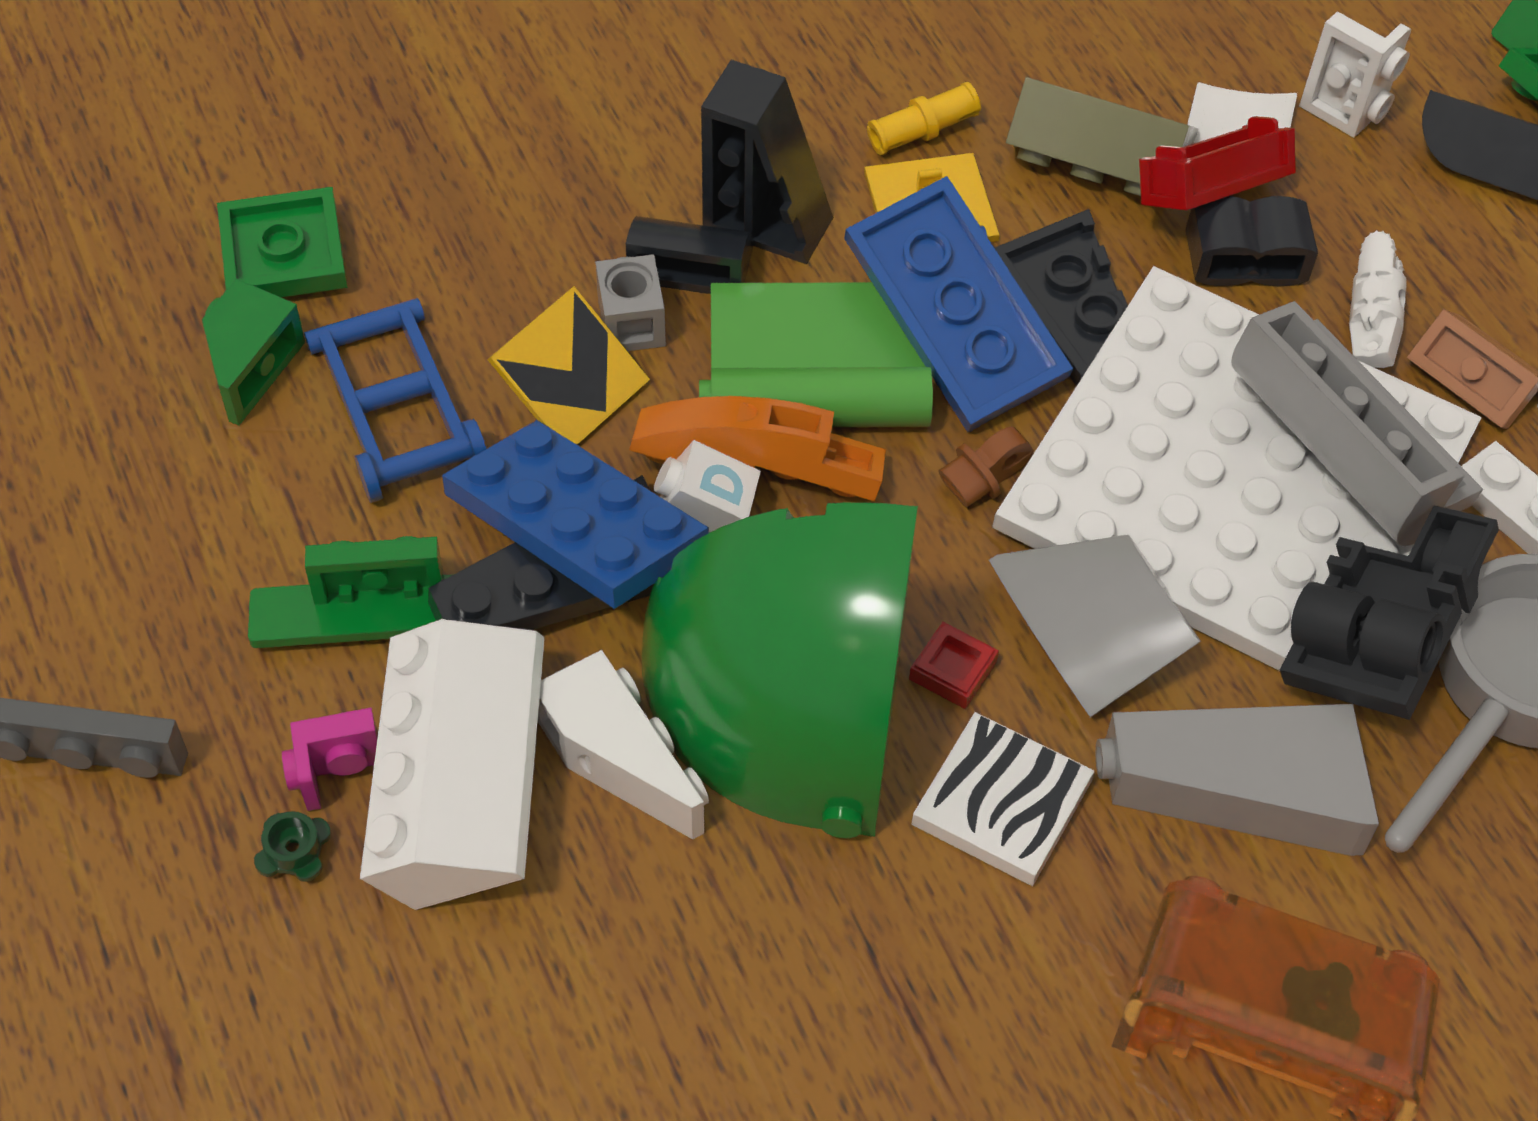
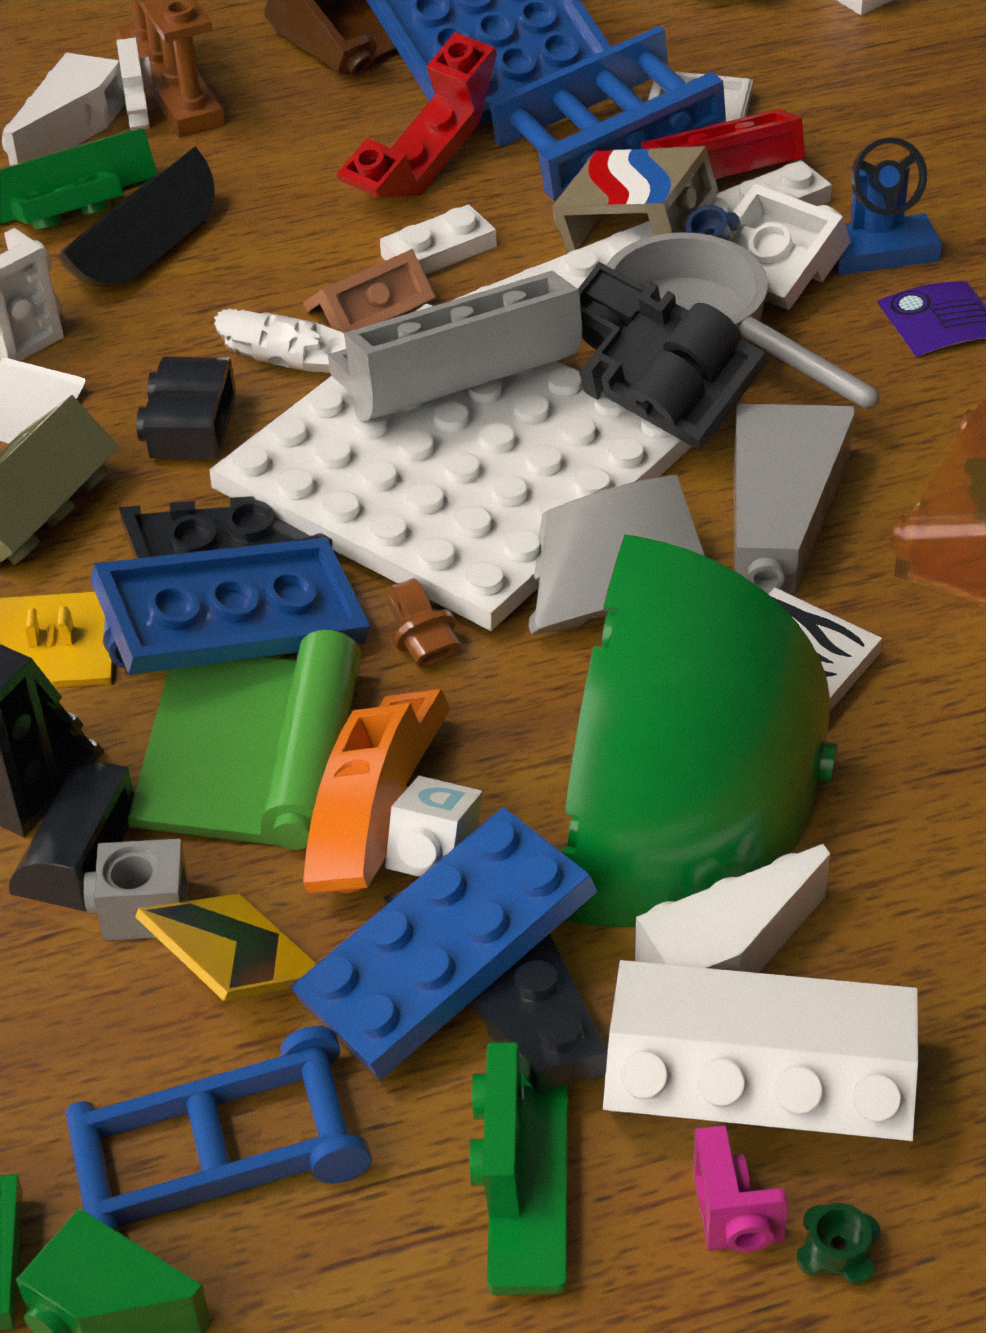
camera: 80 degrees left, 10 degrees down
(1218, 165) = (115, 401): red container -> none

